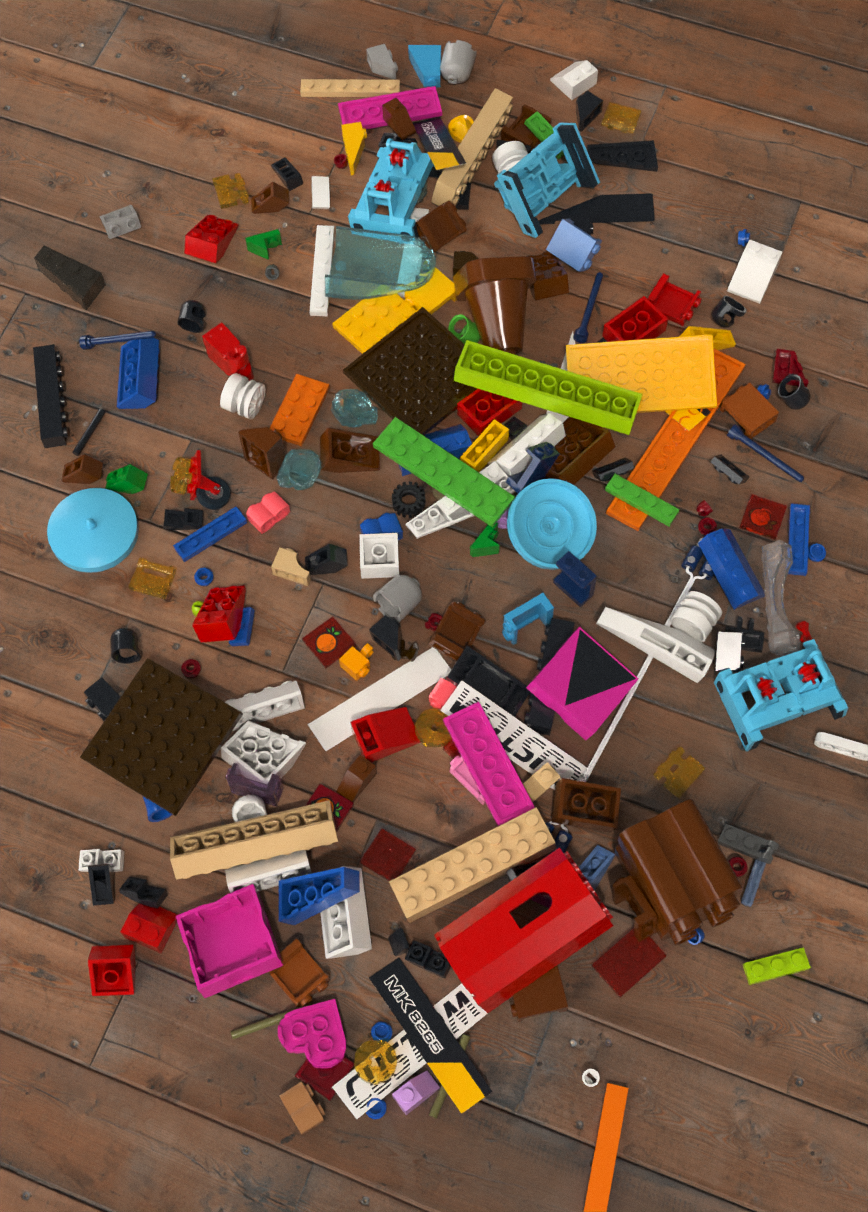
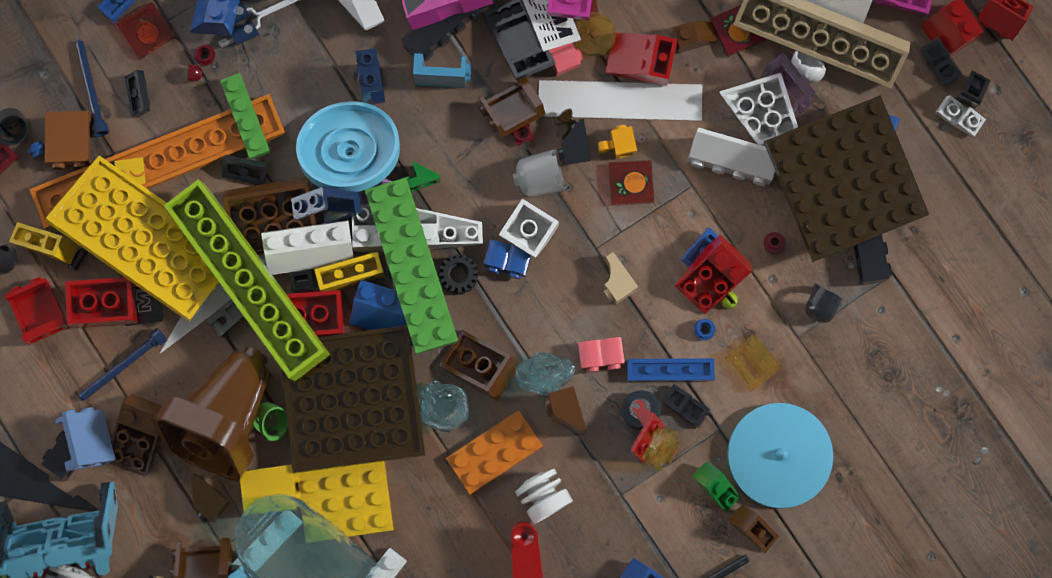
camera: 150 degrees left, 15 degrees up
(326, 560) = (580, 263): black slope -> none

